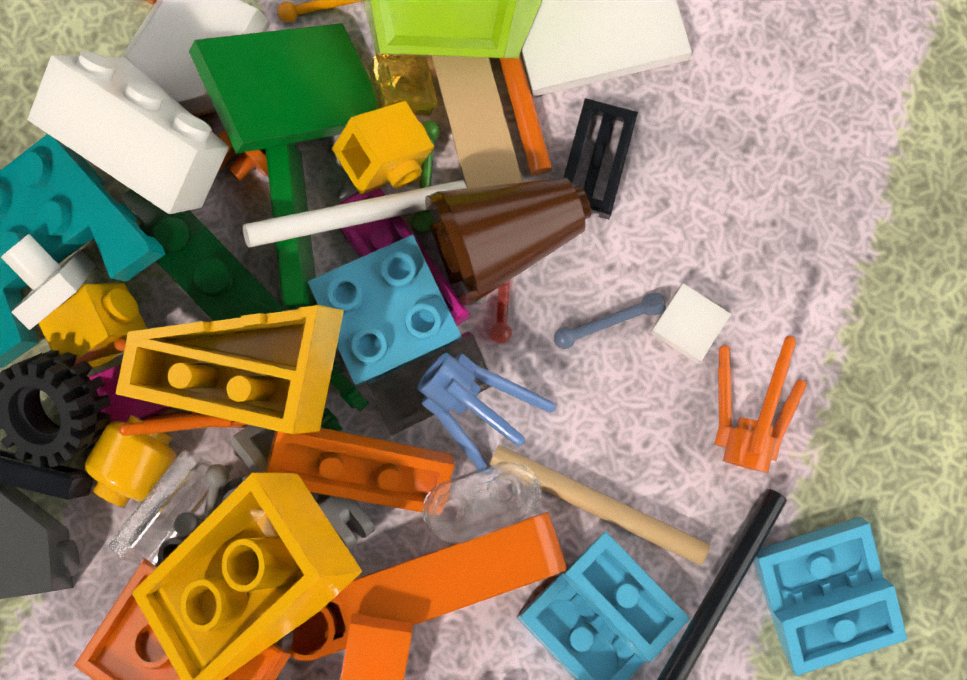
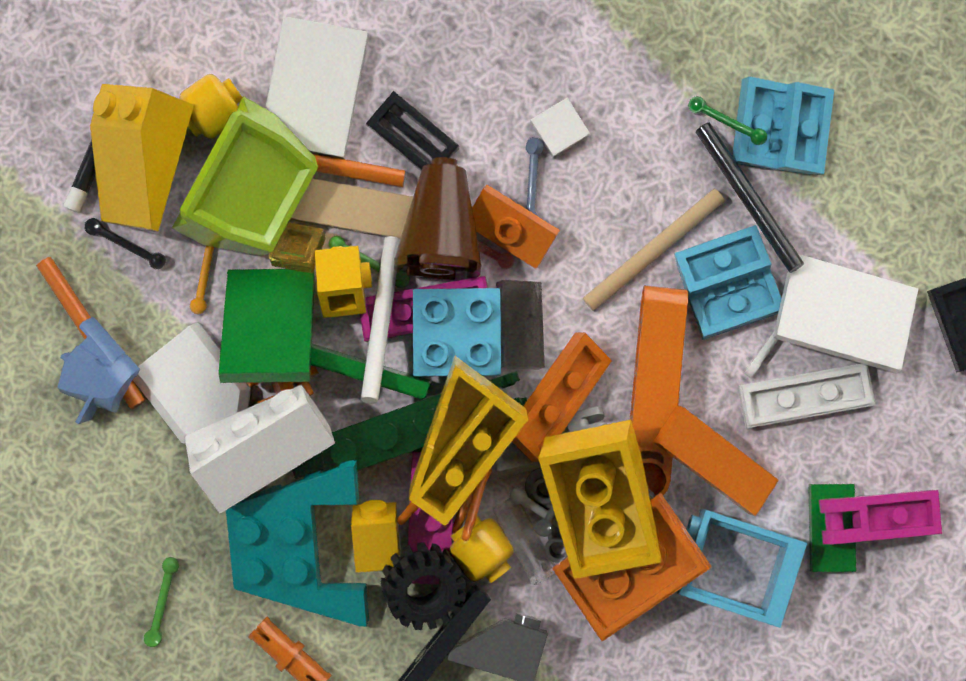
camera: 65 degrees left, 5 degrees up
(48, 280) = (338, 550): white tile -> none
(451, 385) = (532, 310): medium blue plant -> none
(479, 502) = (618, 328): clear plate -> none
(544, 319) = (512, 226): none -> orange plate
(754, 441) = (661, 124): orange plant -> none
(800, 479) = (698, 106): none -> green hinge

